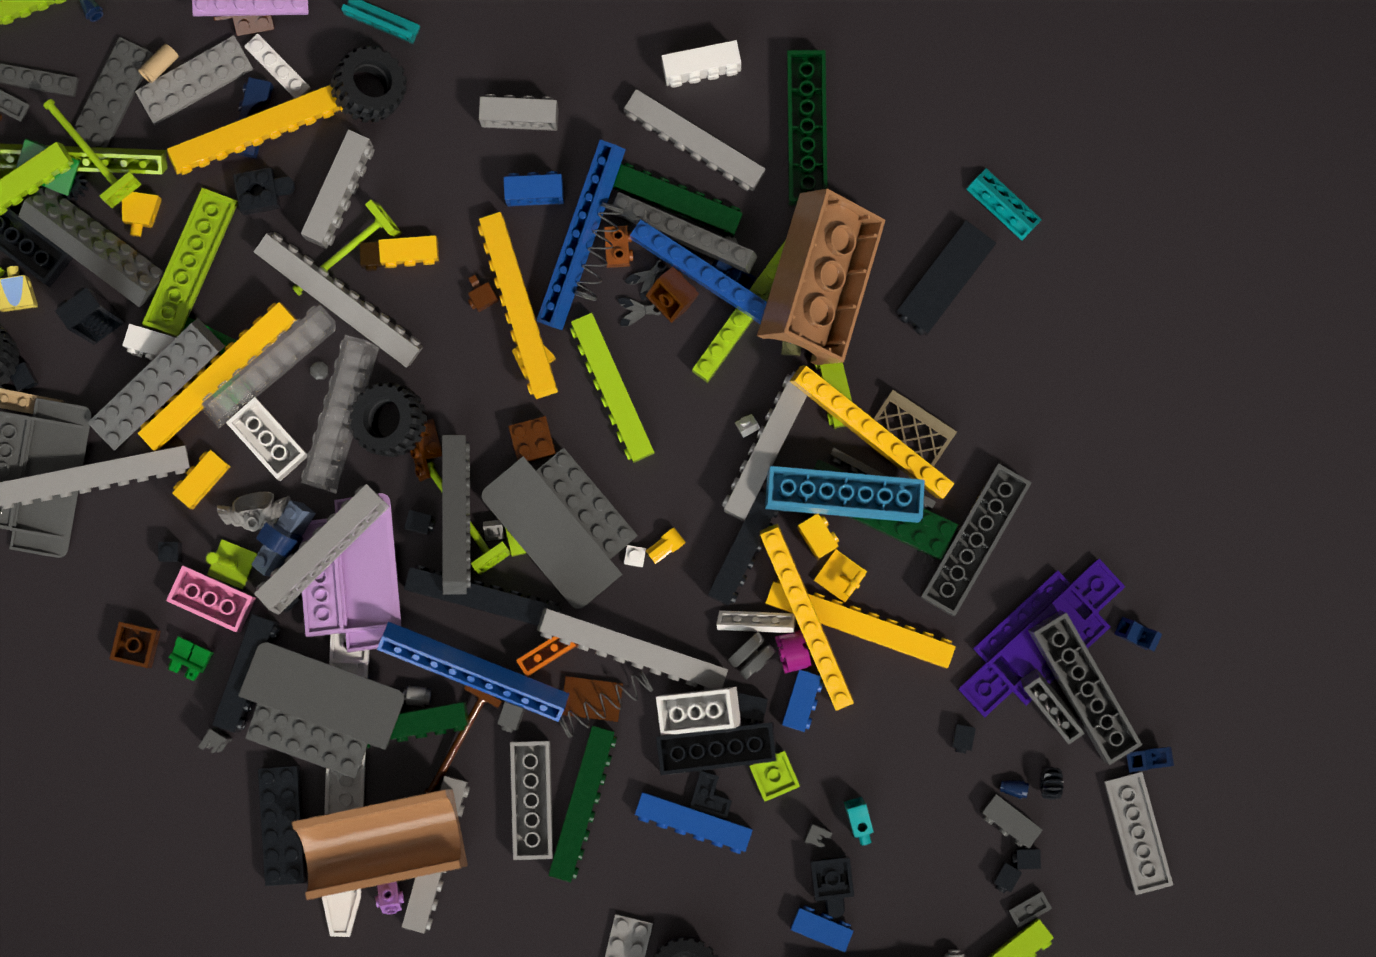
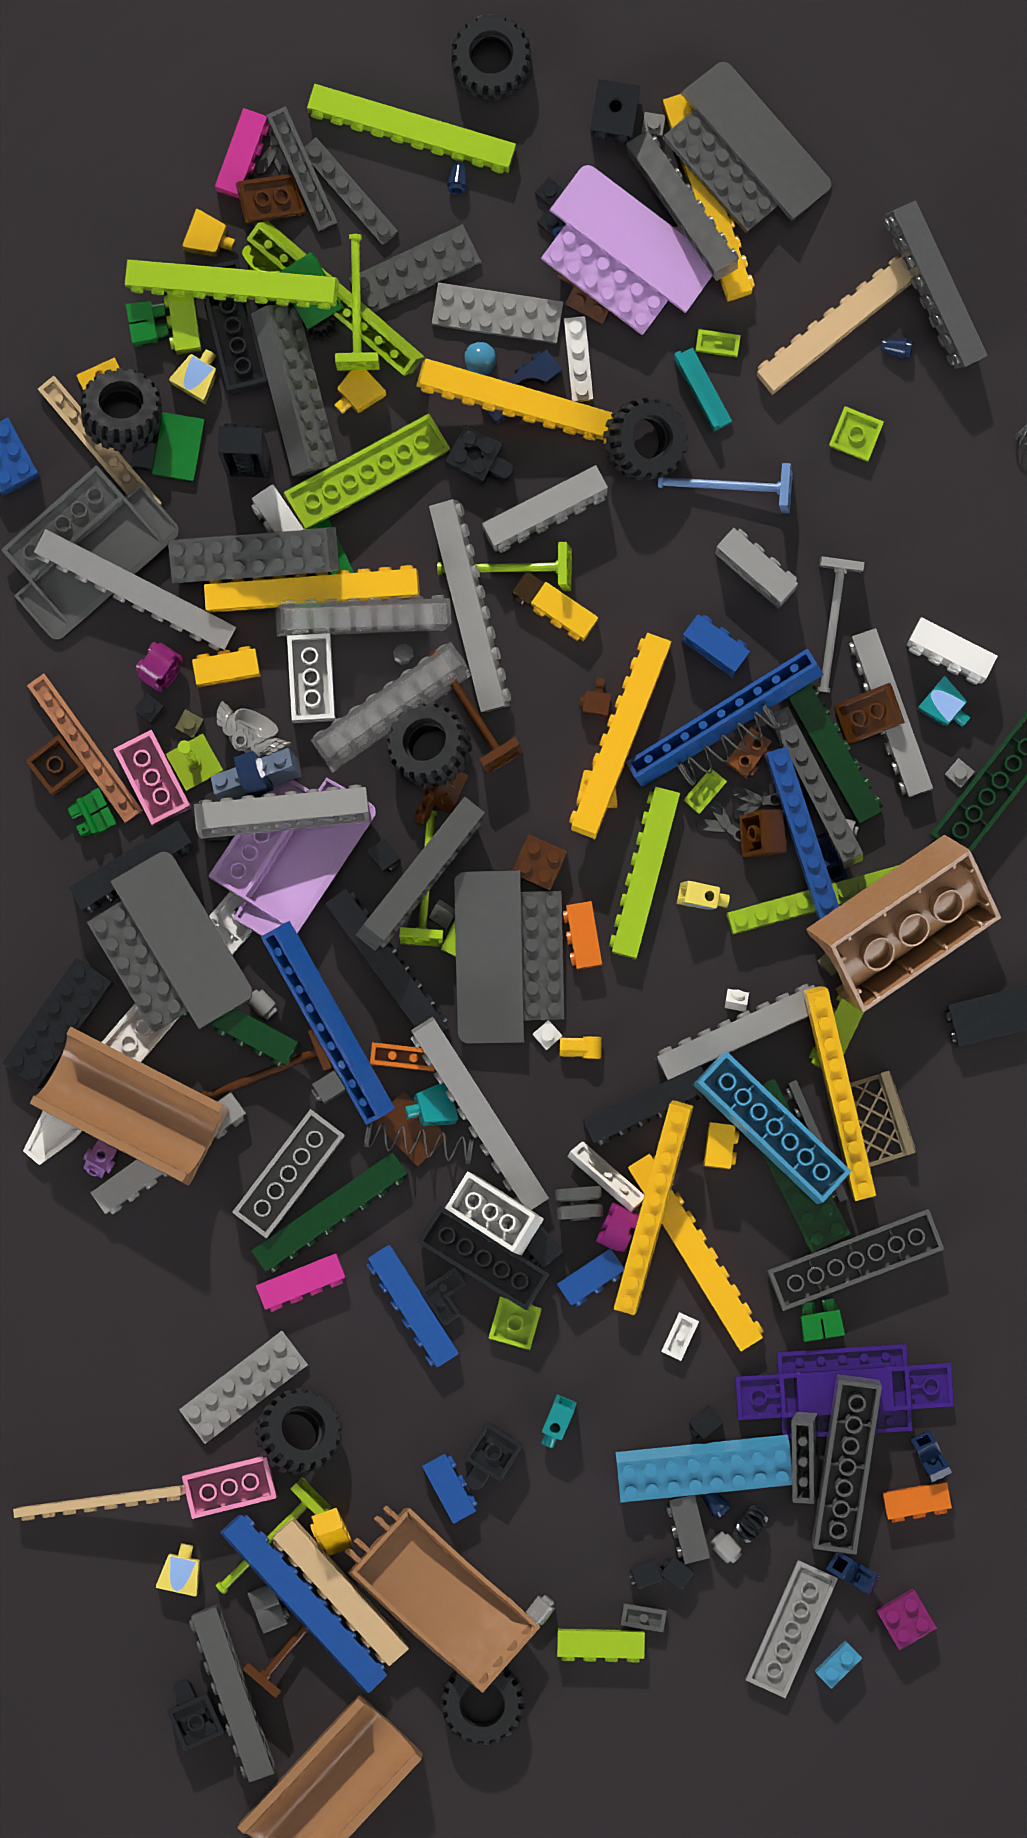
camera: 40 degrees right, 0 degrees up
(43, 351) = (178, 447): none -> green tile
(146, 616) = (85, 748): none -> nougat plate
(152, 516) = (159, 666): none -> magenta brick
(158, 63) = (477, 274): tan pin -> none
(207, 120) = (480, 358): none -> dark azure hair
(207, 540) = (189, 724): none -> olive plate
(215, 738) = (60, 902): dark grey hinge -> none
(444, 386) = (500, 754): none -> reddish brown tile
(492, 43) = (782, 488): none -> medium blue tile
(577, 65) = (840, 567): none -> light grey tile
(595, 671) = (433, 1107): none -> teal torso
(601, 868) = (301, 1281): none -> dark pink brick
(603, 466) = (582, 935): none -> orange brick
(608, 297) = (705, 791): none -> lime plate
(658, 376) = (694, 893): none -> light yellow torso
(679, 152) = (869, 714): none -> reddish brown tile
(726, 104) = (944, 704): none -> teal torso
(774, 144) = (959, 773): none -> light grey plate
(814, 832) = (508, 1400): dark grey hinge -> none
(840, 576) = (712, 1196): yellow plate -> none
(897, 692) = (680, 1336): none -> white plate
(980, 607) = (830, 1318): none -> green hips
(988, 770) = (704, 1468): none -> dark azure brick
(1048, 813) = (726, 1547): none -> light grey brick
(1153, 673) = (916, 1501): none -> orange brick
(1190, 831) = (838, 1664): none -> dark azure brick
(1212, 761) = (906, 1619): none -> magenta brick

